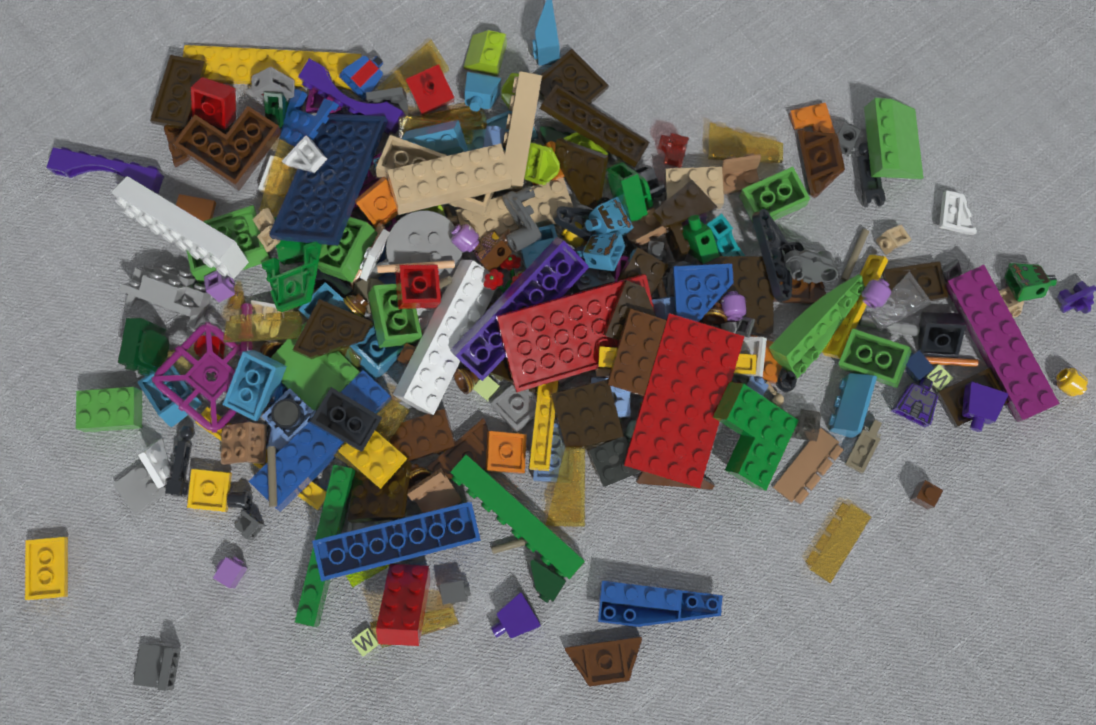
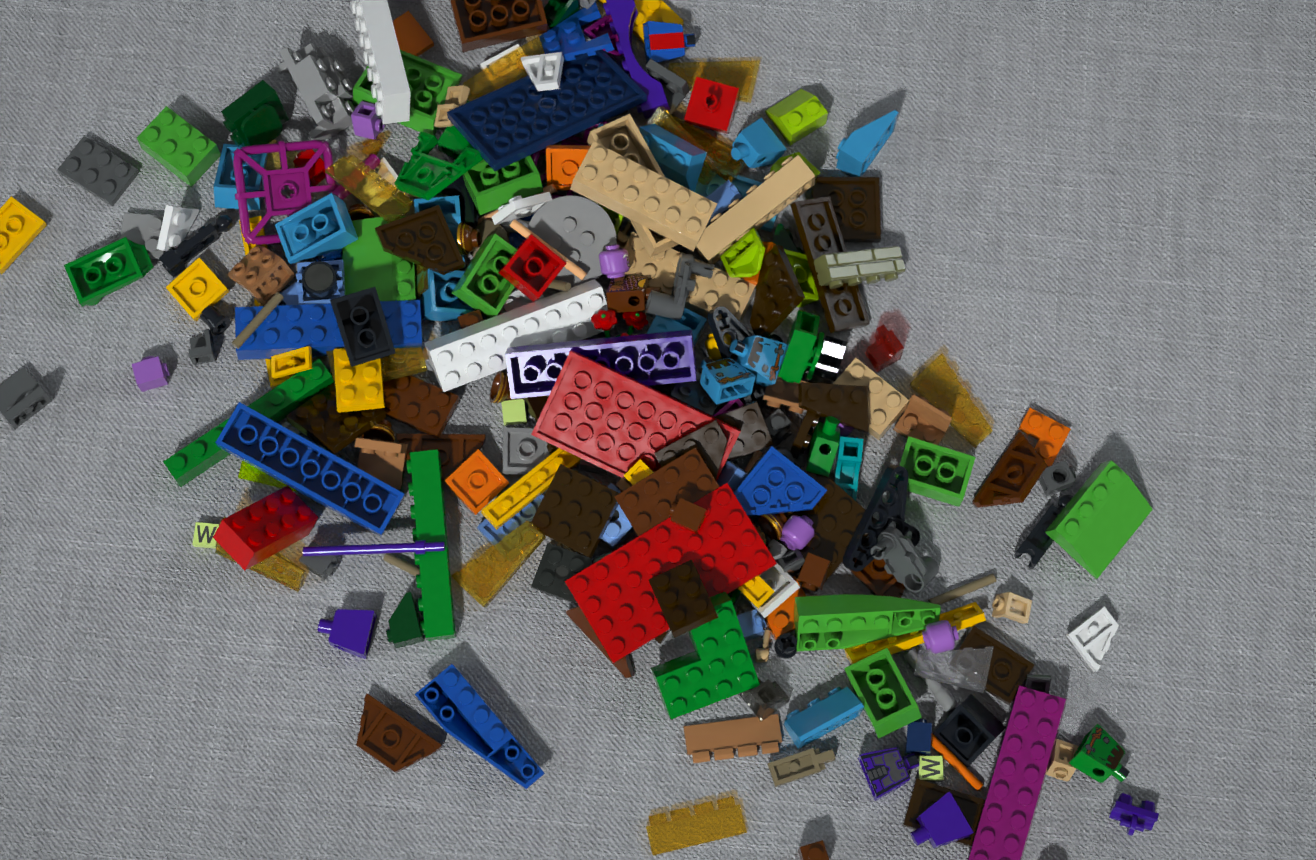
camera: 35 degrees right, 5 degrees down
(69, 472) = (98, 171): none -> dark grey plate
(138, 531) = (108, 270): none -> green slope
(318, 483) = (291, 362): none -> yellow slope
(513, 526) = (418, 547): none -> dark purple bar
(614, 111) = (859, 266): none -> olive brick
(666, 355) = (687, 515): none -> reddish brown brick
(713, 409) = (683, 598): none -> dark brown plate
(766, 321) = (814, 572): none -> reddish brown brick

